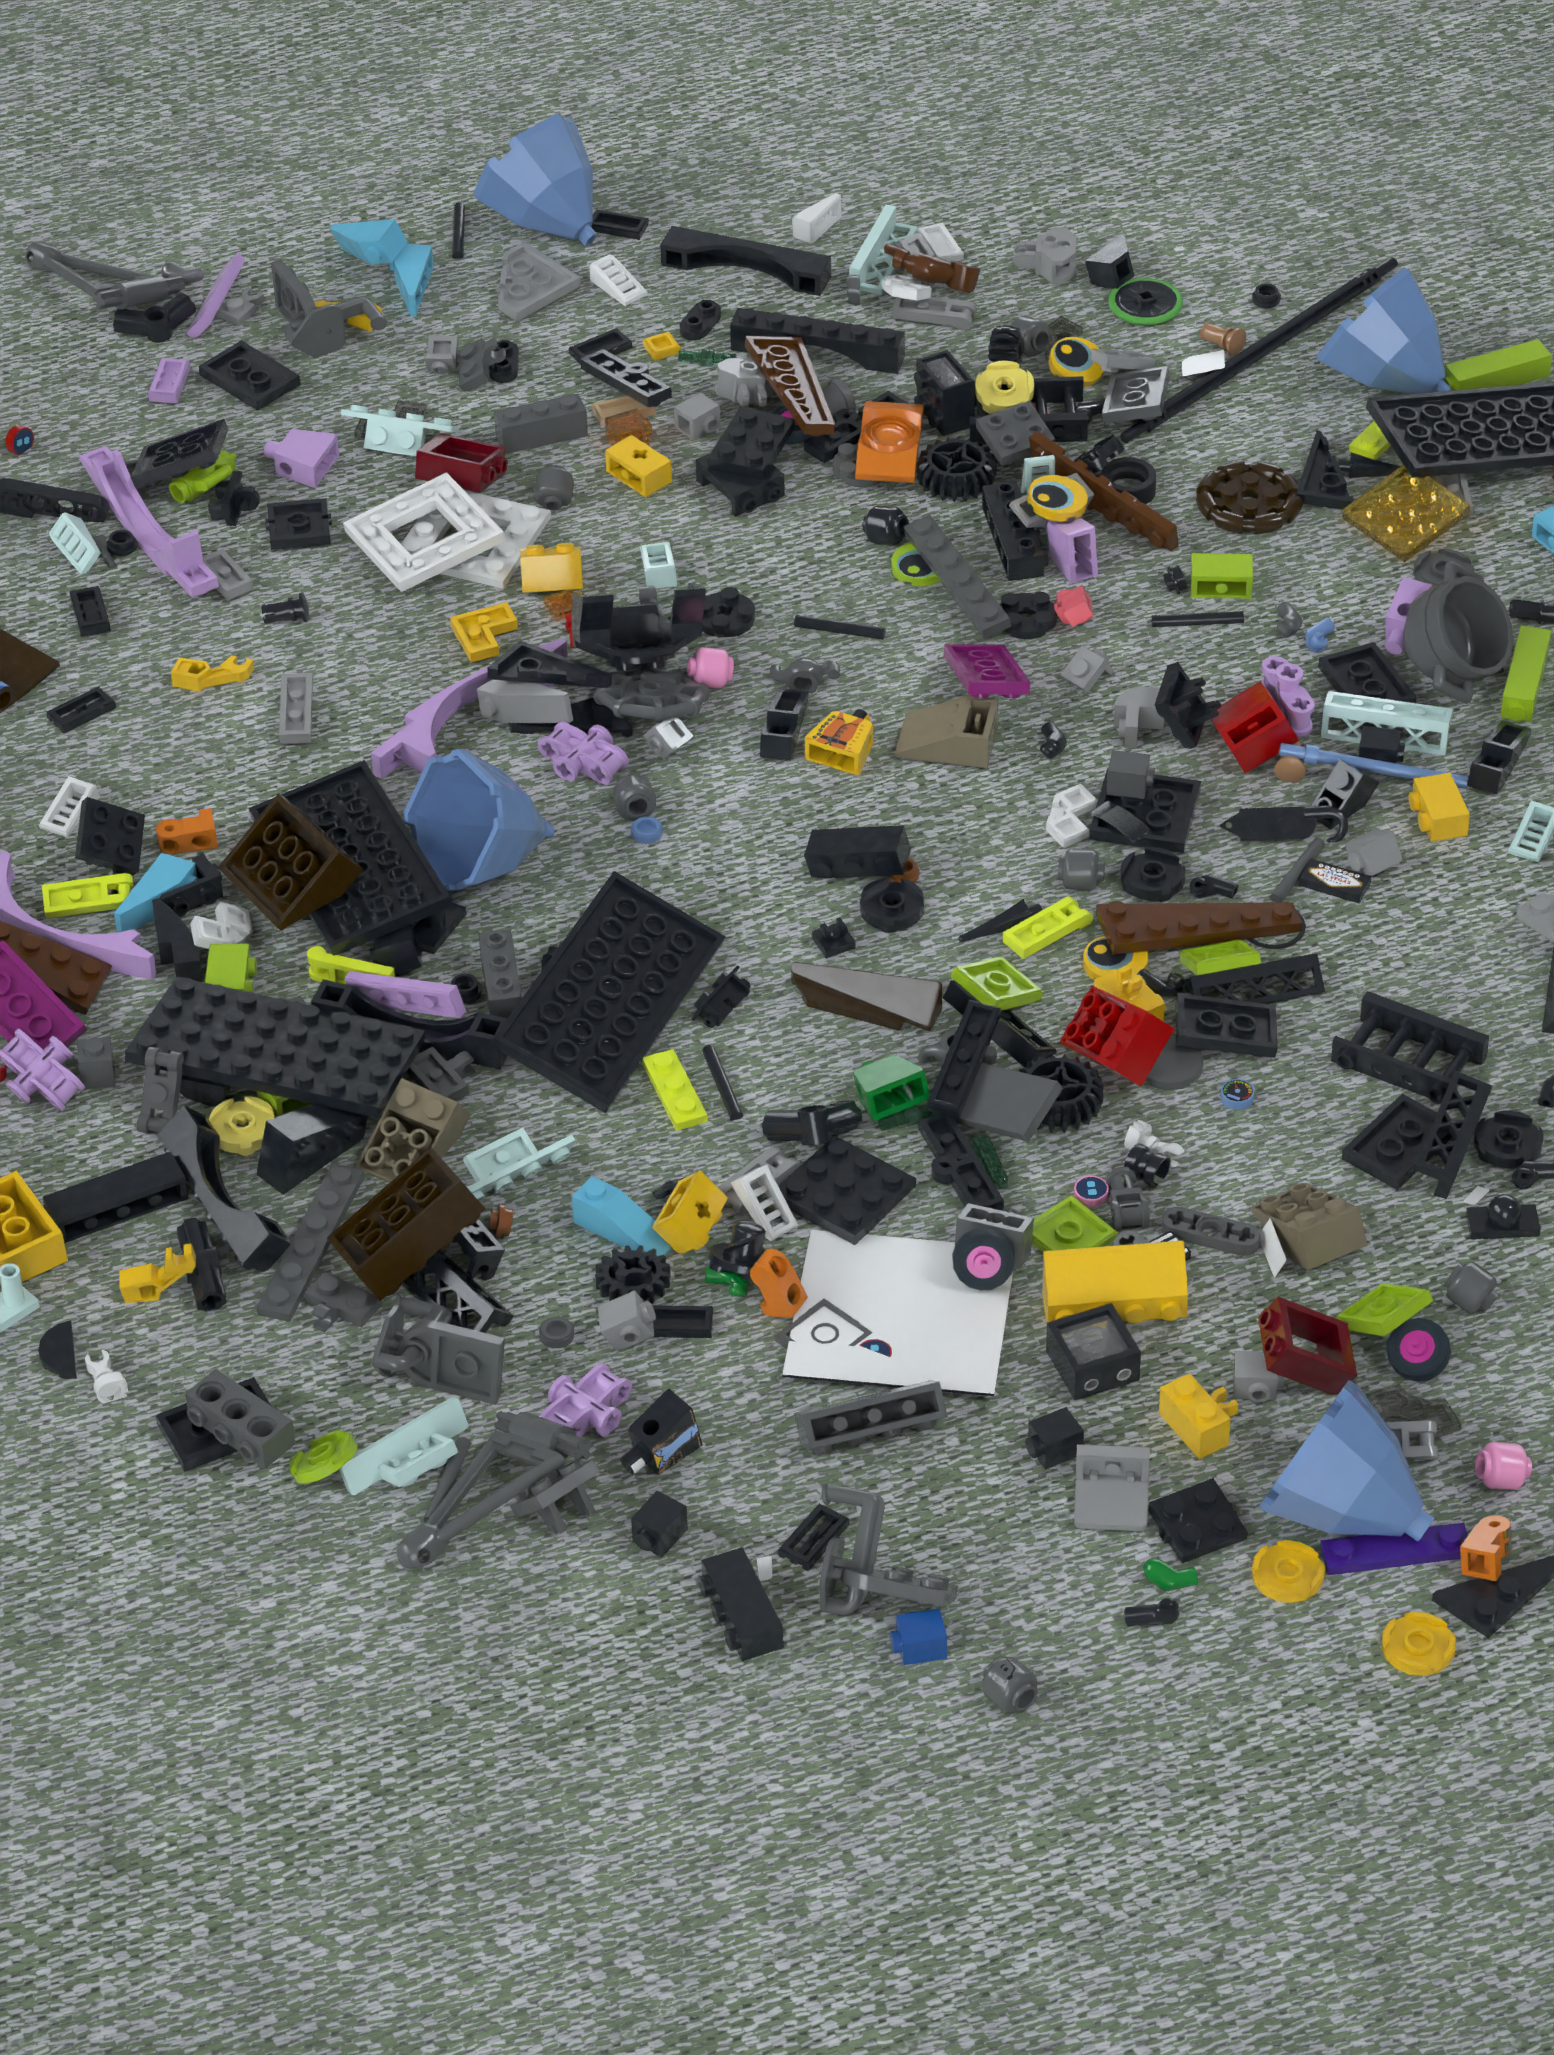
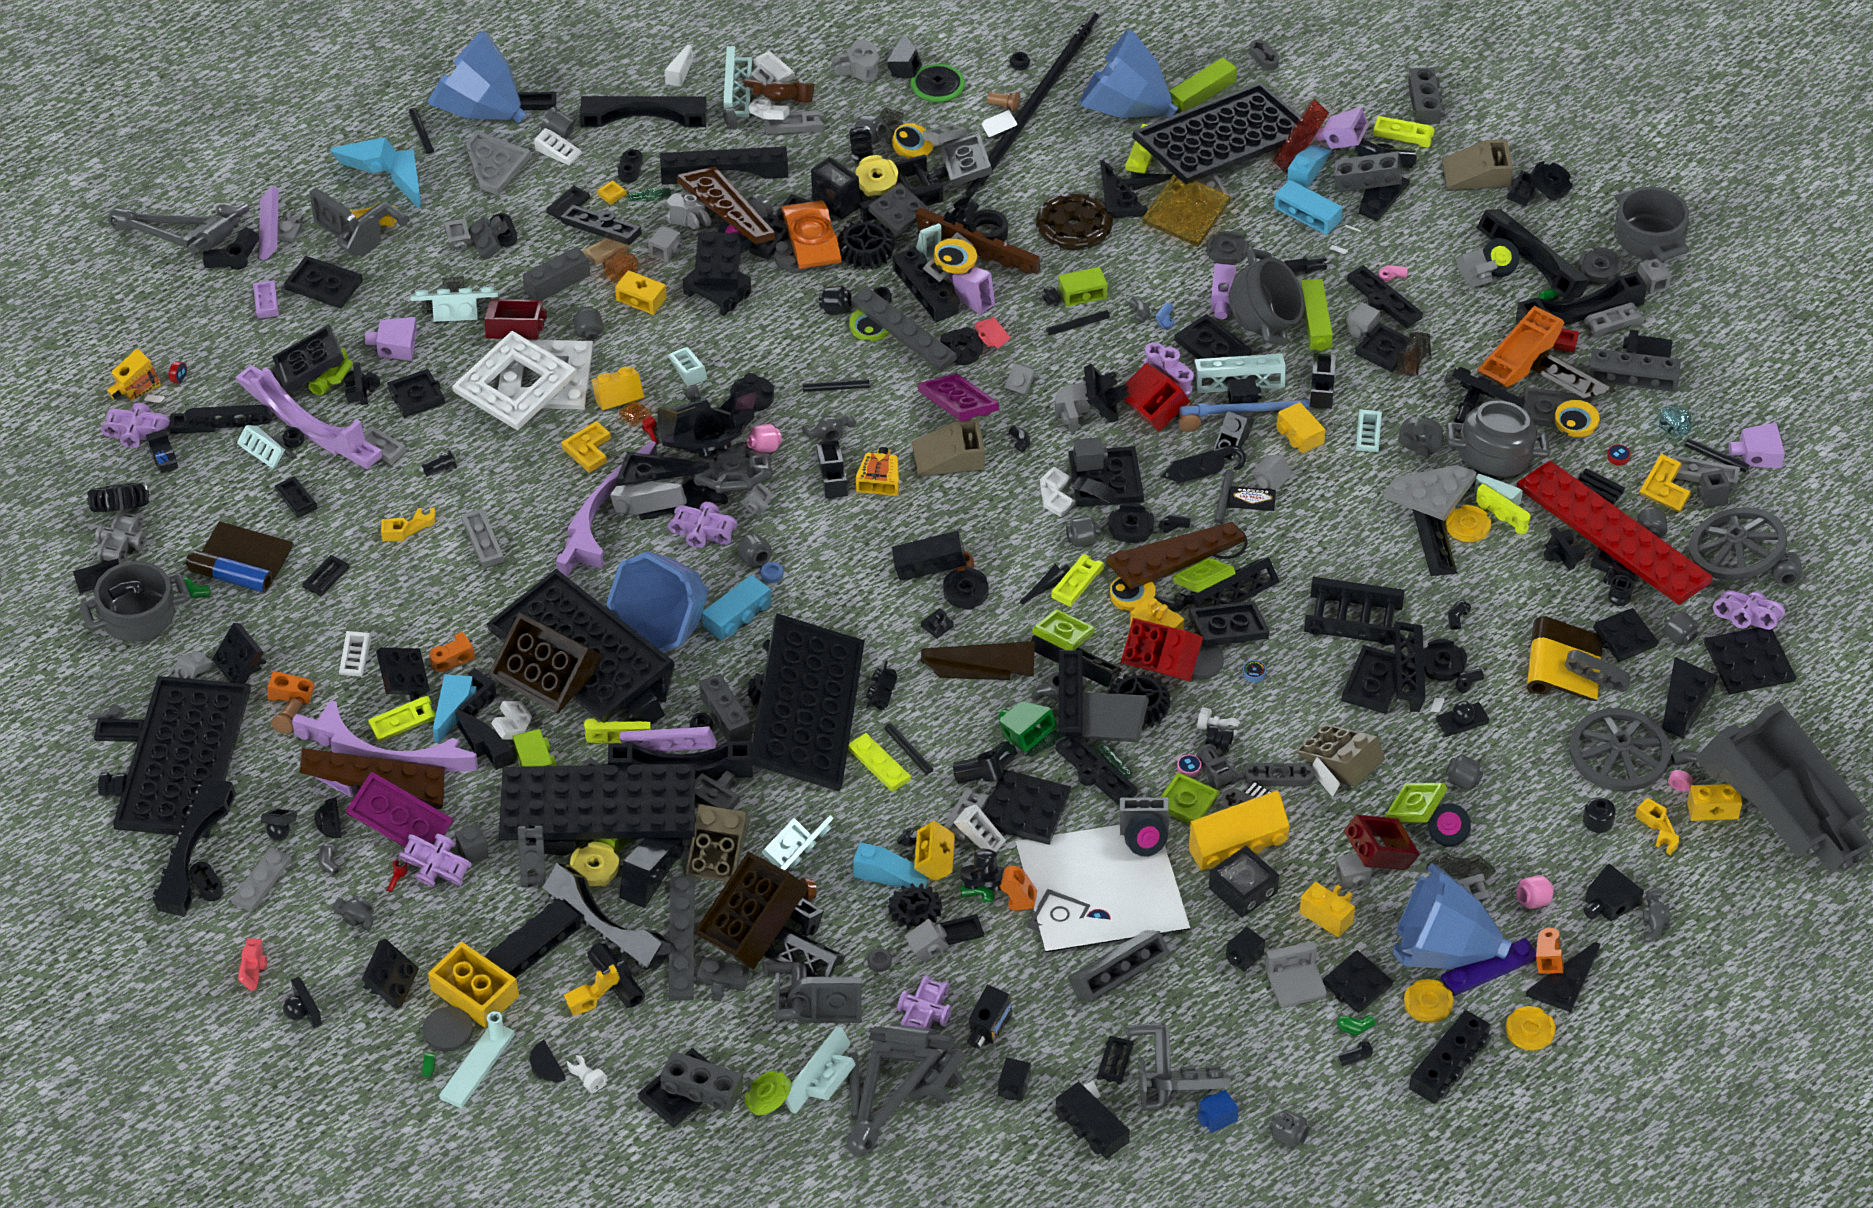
camera: 20 degrees left, 5 degrees up
(577, 859) = (736, 607): none -> medium azure brick
(630, 252) = (558, 123): none -> dark grey piece
(953, 531) = (884, 293): none -> black plate
(1282, 1650) = (1450, 1056): none -> black brick

